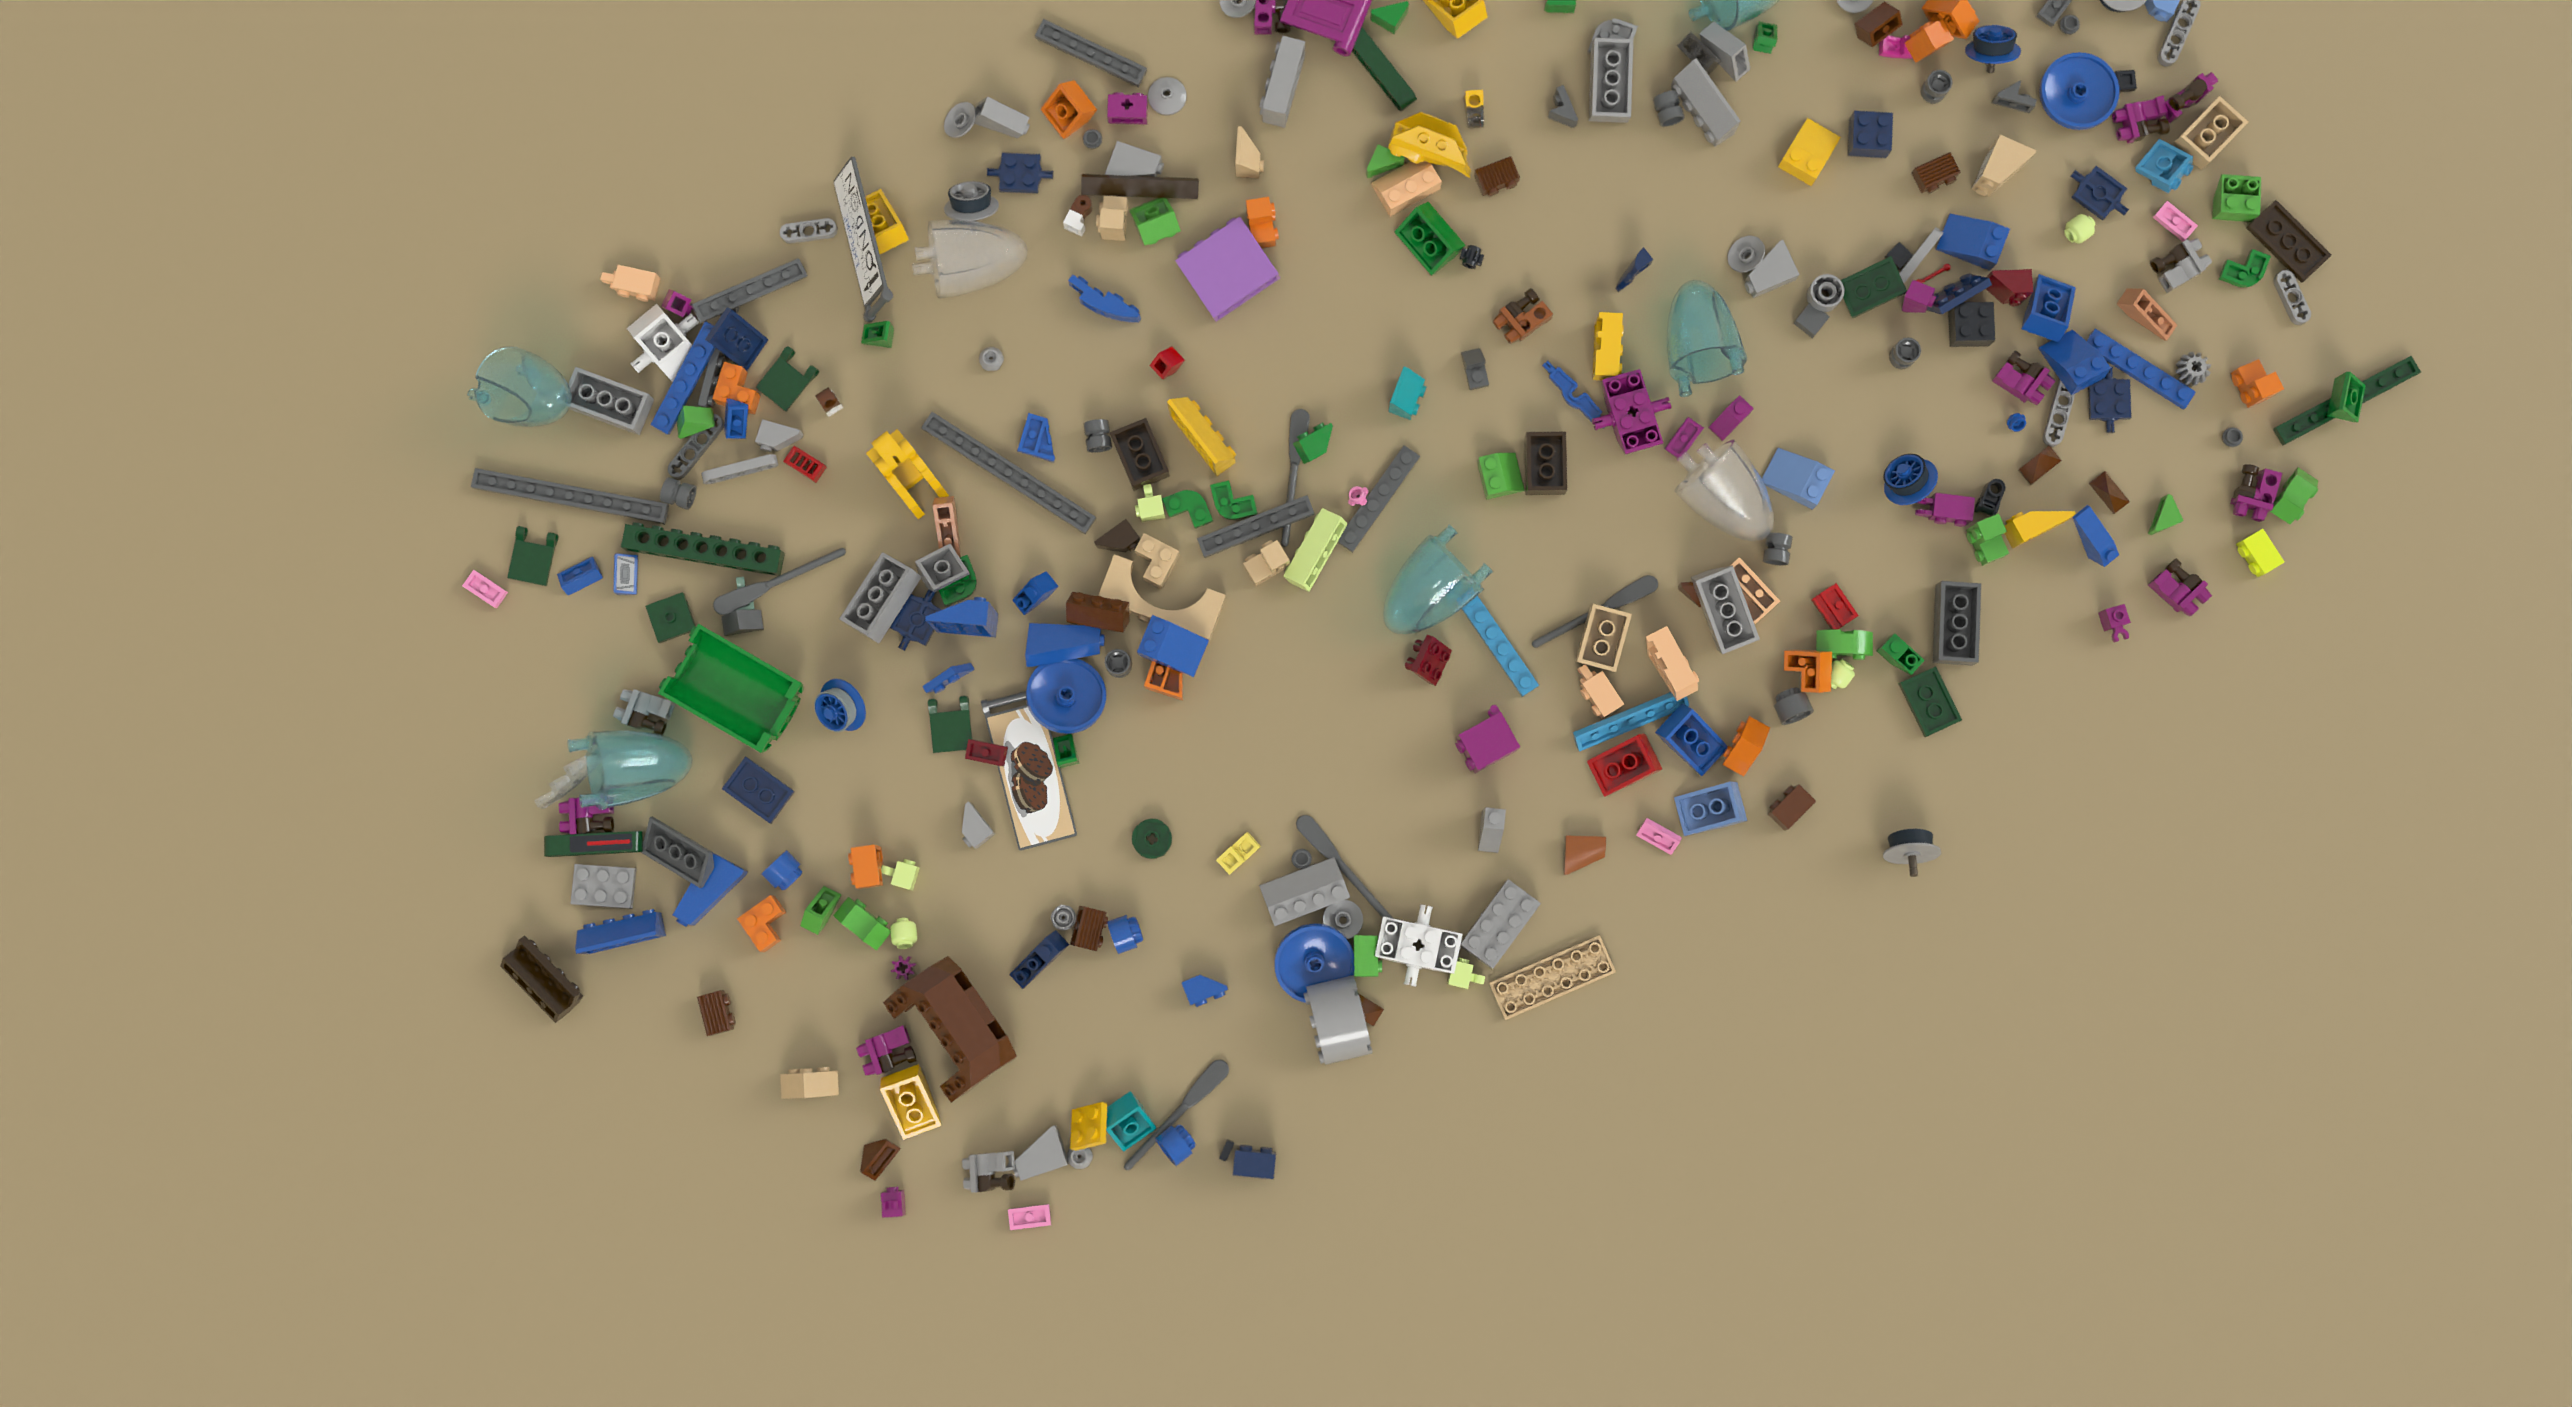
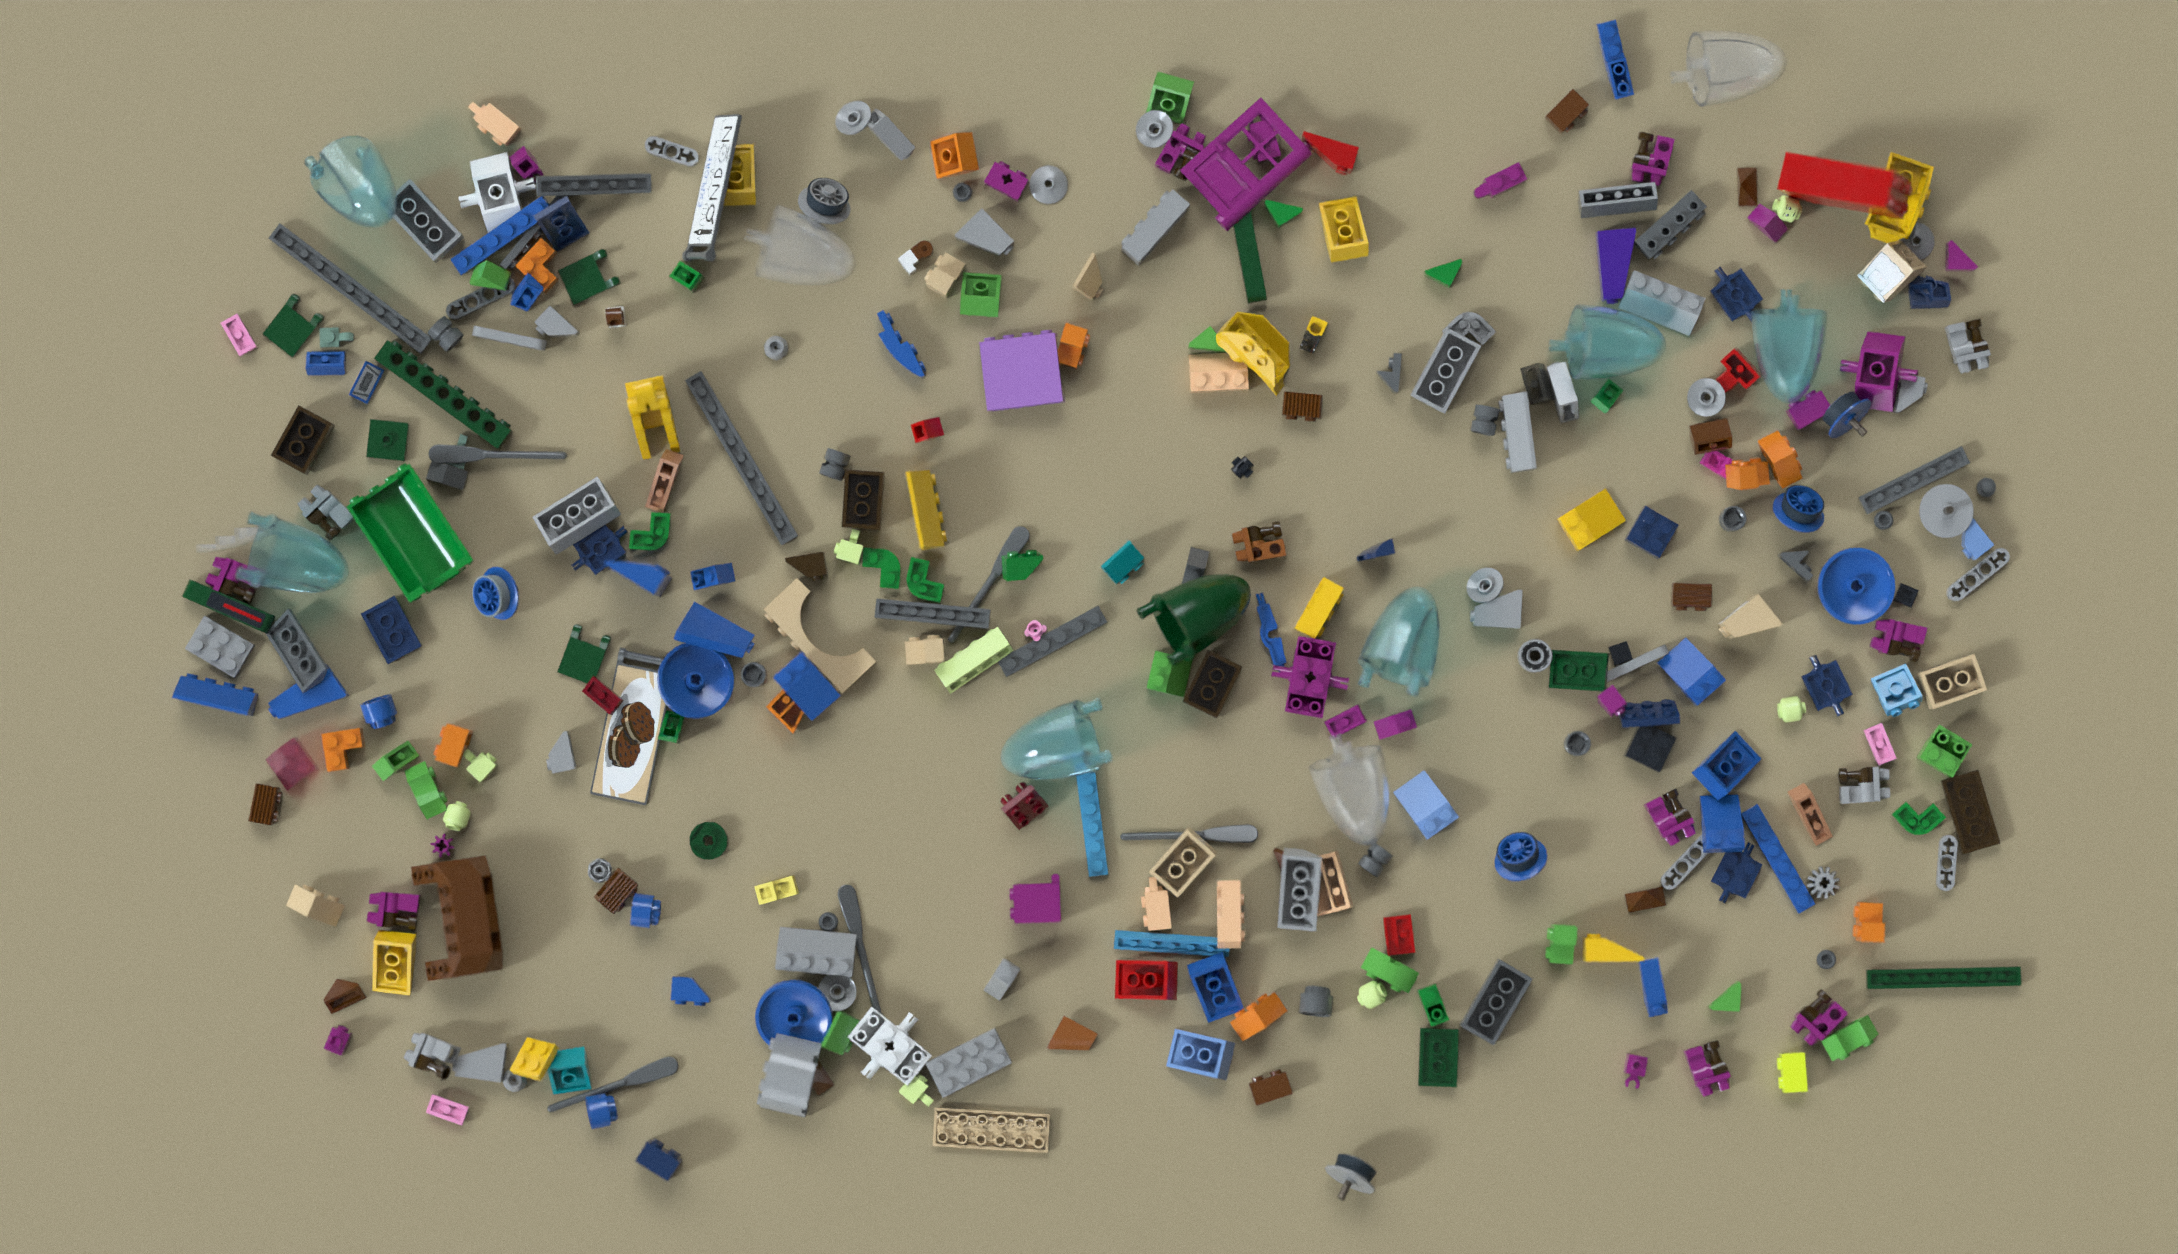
camera: 25 degrees right, 5 degrees up
(541, 979) = (130, 702): dark brown brick -> none
(574, 549) = (331, 337): none -> sand green plate
(590, 654) = (302, 440): none -> dark brown brick
(723, 961) = (291, 763): none -> clear pink slope
(817, 473) = (570, 377): red slope -> none
(941, 568) = (641, 516): light grey slope -> none
(947, 677) = (603, 614): blue wing -> none
(1020, 173) = (883, 191): dark blue plate -> none
(1036, 438) = (781, 439): blue wing -> none
(1039, 959) = (561, 895): dark blue slope -> none
(1091, 53) = (999, 113): dark grey plate -> none
(1097, 612) = (758, 621): reddish brown brick -> none
(1139, 186) = (981, 258): dark brown tile -> none
(1161, 557) = (837, 600): tan brick -> none
(1226, 1150) = (641, 1137): black tile -> none
(1429, 238) = (1214, 431): green slope -> none
(1499, 403) = (1198, 612): none -> dark green windscreen
(1658, 836) = (1143, 1055): bright pink plate -> none
(1811, 320) = (1512, 672): dark grey piece -> none
(1815, 668) = (1350, 978): orange brick -> none
(1946, 267) = (1625, 685): red hinge -> none
(1948, 509) = (1543, 898): magenta hinge -> none
(1988, 501) = (1583, 908): black piece -> none
(2011, 286) = (1700, 730): dark red slope -> none
(2016, 422) = (1643, 852): blue plate -> none
(2109, 492) = (1693, 953): reddish brown slope -> none
(2193, 93) = (1960, 637): hips -> none
(2346, 398) = (1941, 977): green slope -> none

